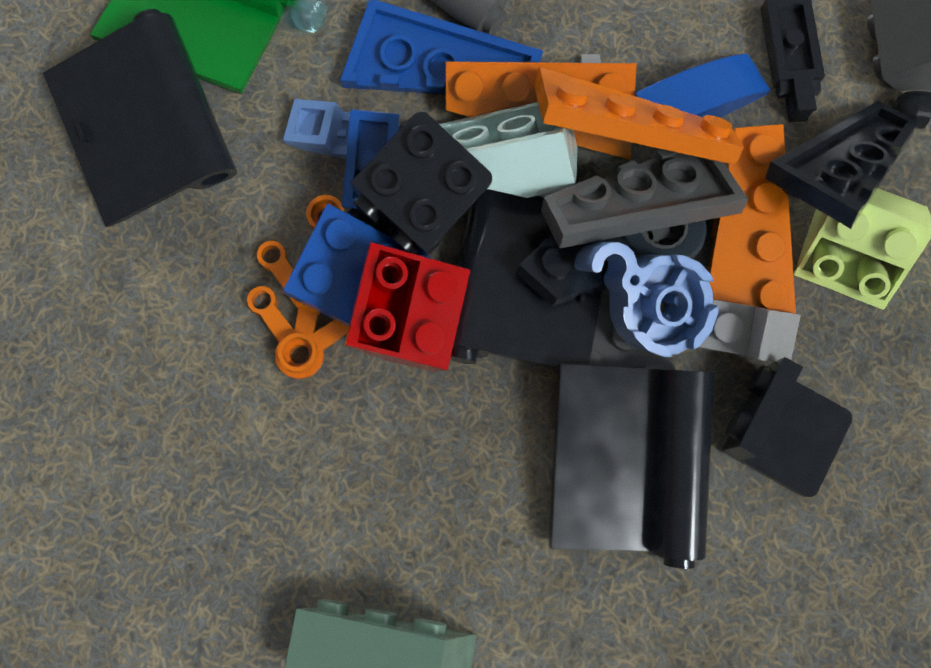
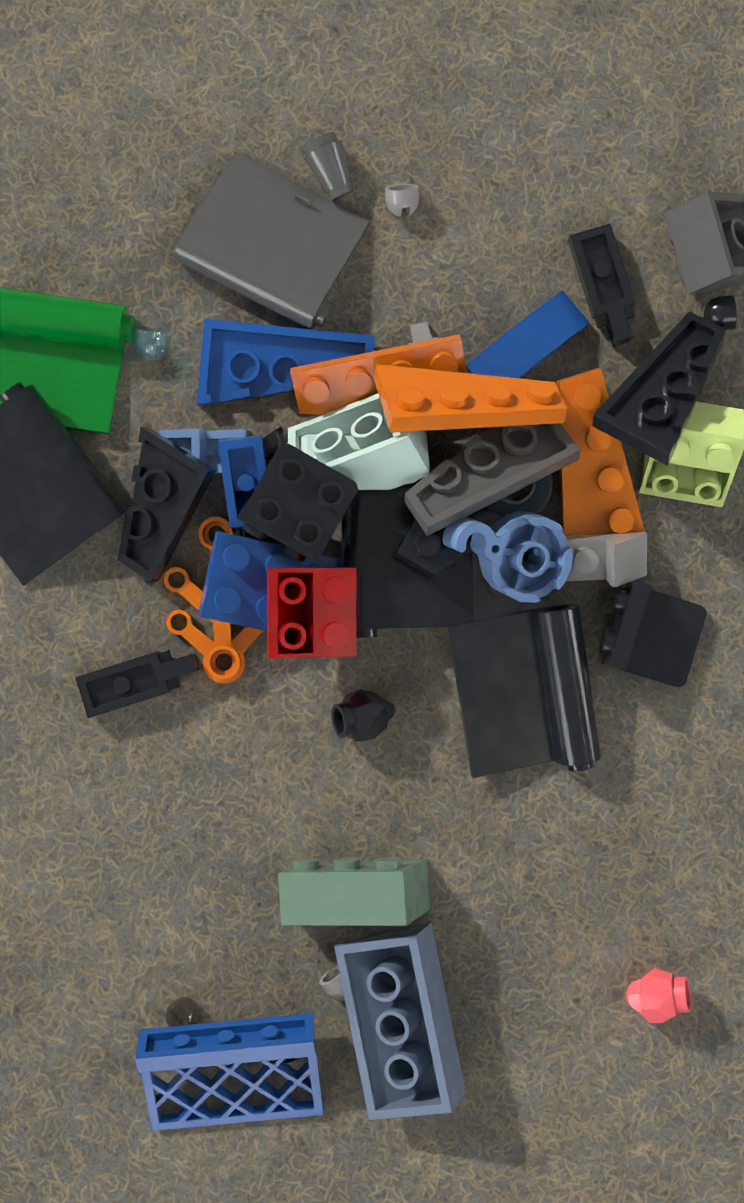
camera: 10 degrees left, 10 degrees up
(193, 352) = (133, 681): none -> black hinge
(282, 162) = (163, 502): none -> black wing
(438, 446) = (361, 715): none -> black rock

